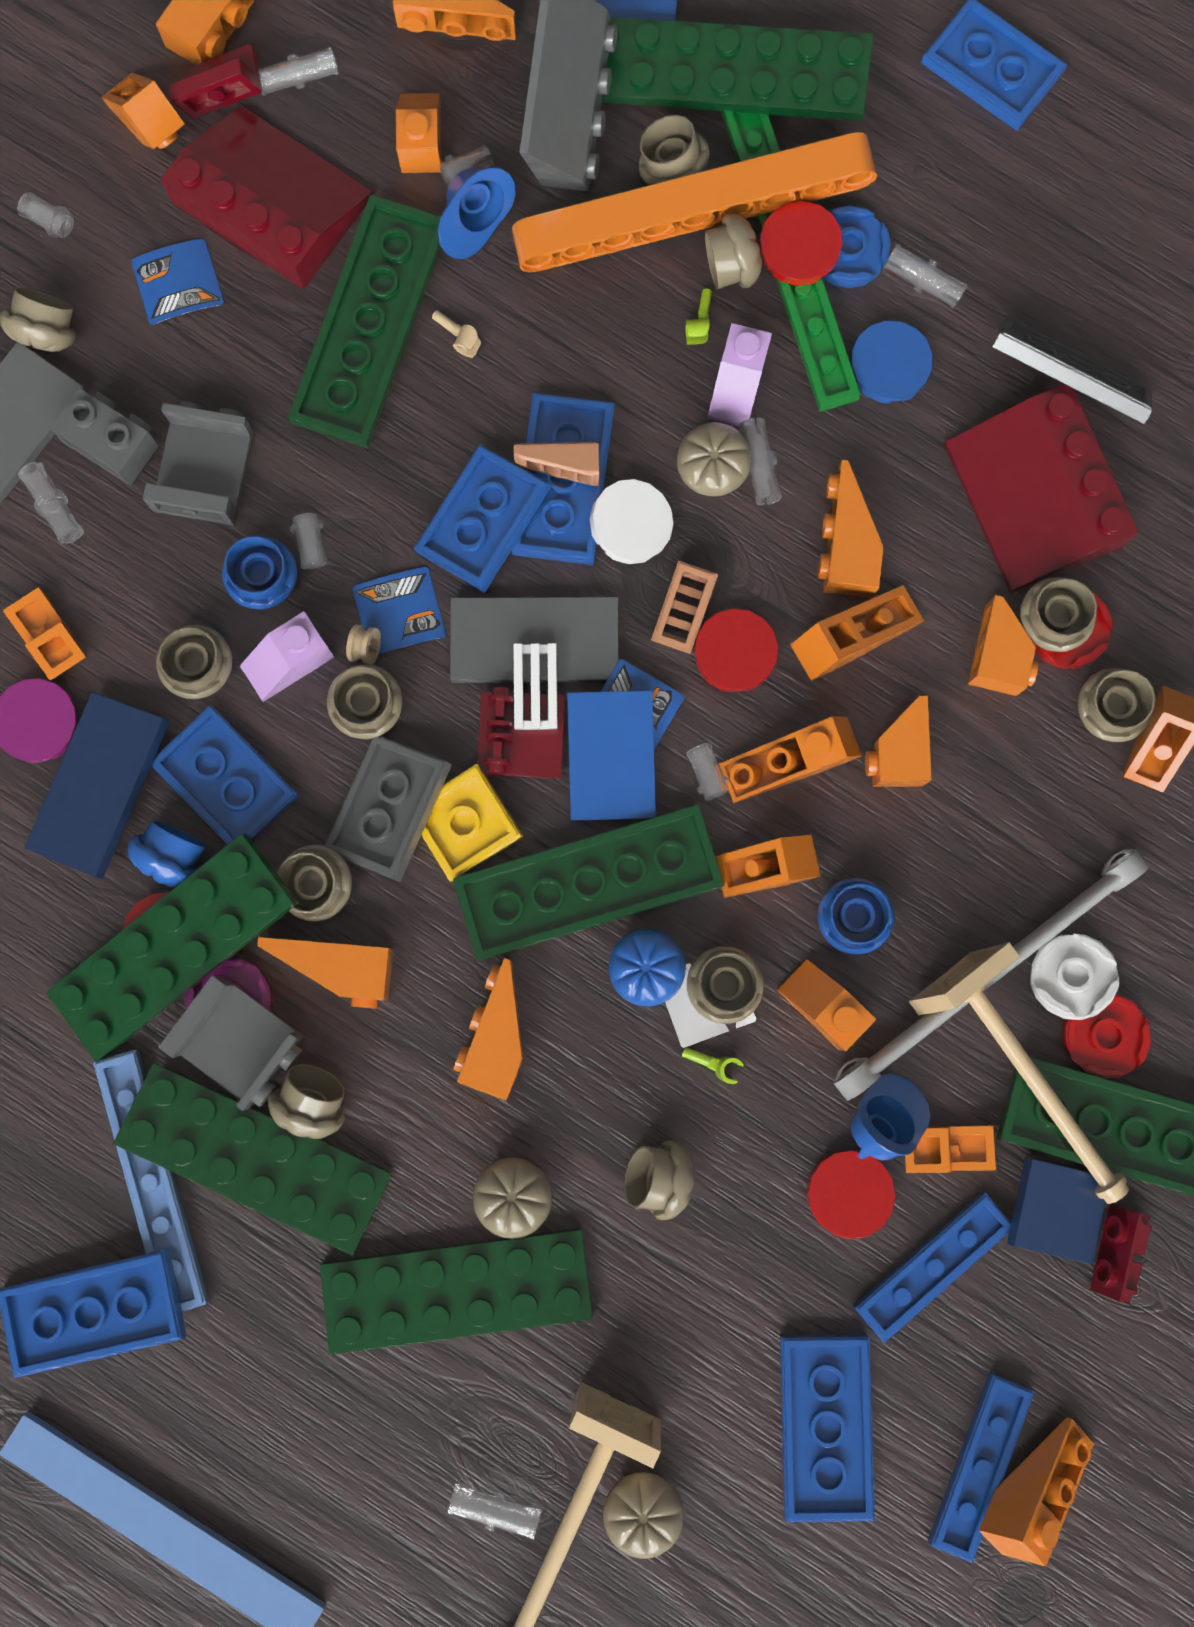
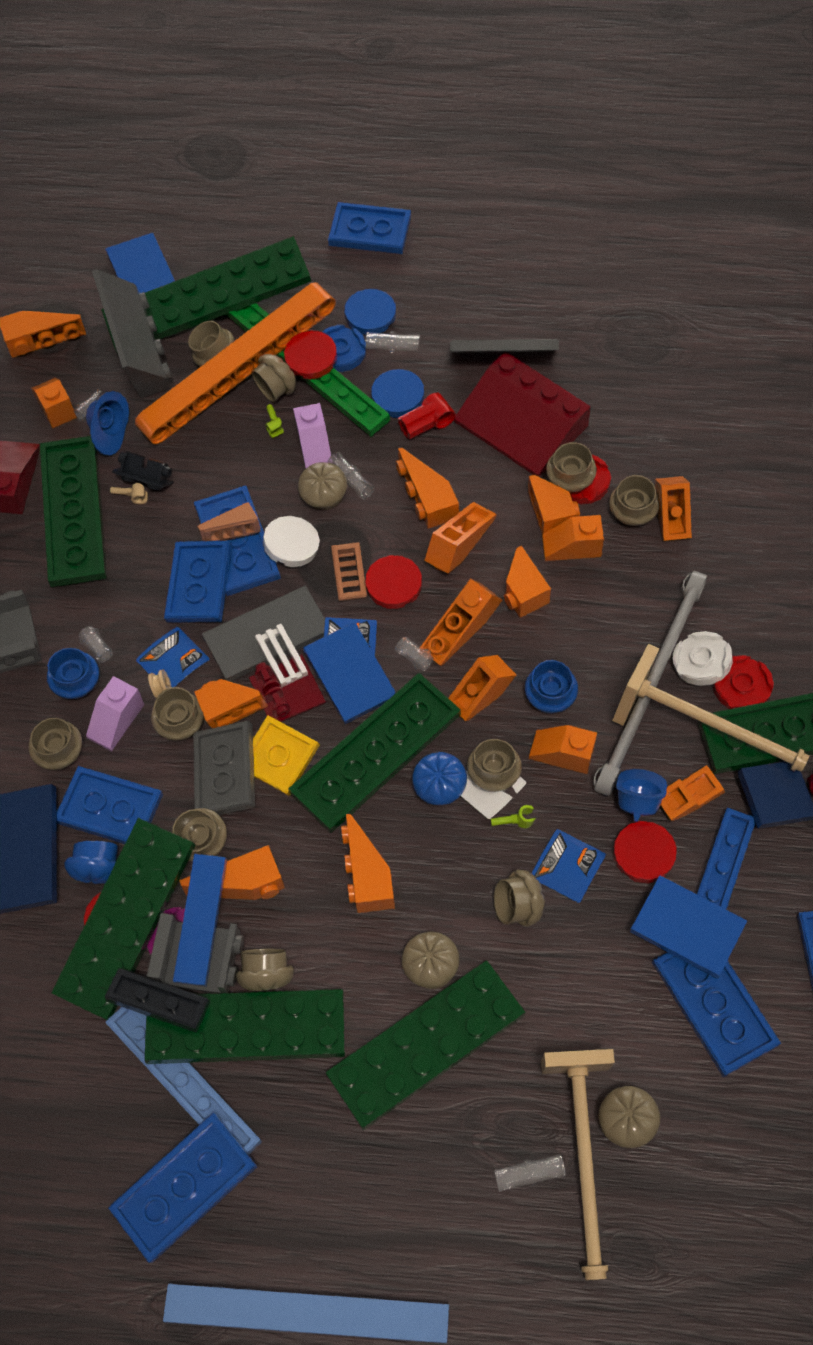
camera: 20 degrees left, 20 degrees down
(159, 1081) = (157, 1000): none -> black tile
(258, 1003) = (200, 920): none -> blue tile
(431, 717) = (228, 702): none -> orange slope
(499, 325) = (154, 474): none -> black hinge
(747, 1157) = (568, 865): none -> blue sticker
(847, 1324) = (688, 926): none -> blue tile
(921, 207) = (370, 311): none -> blue tile
(921, 422) = (432, 413): none -> red piece
(1004, 716) = (574, 539): none -> orange slope

